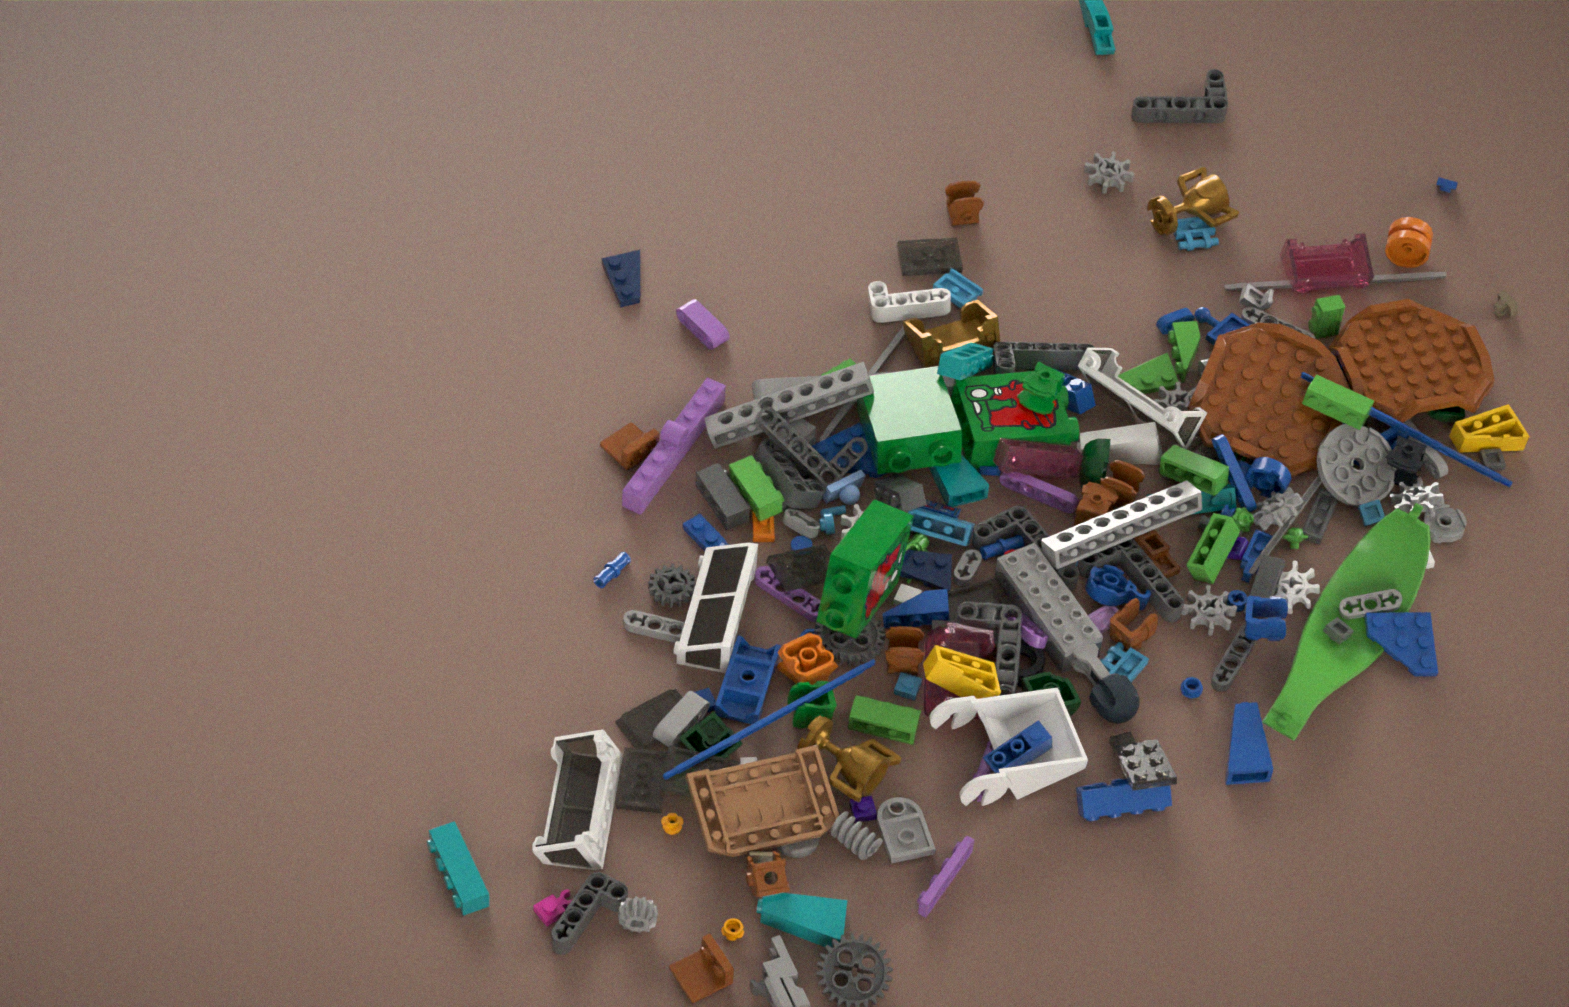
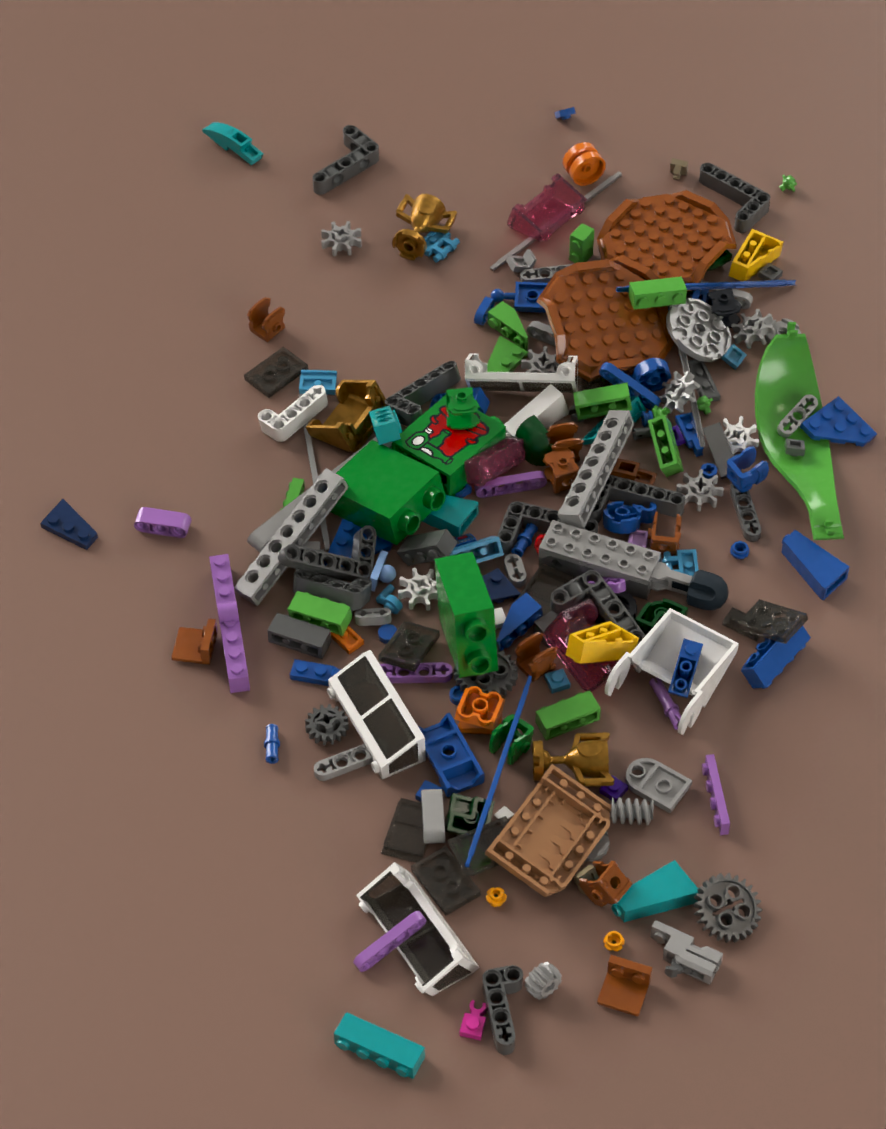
camera: 35 degrees left, 0 degrees up
(546, 793) = (389, 941): none -> medium lavender beam
(1549, 380) = (754, 200): none -> dark grey beam

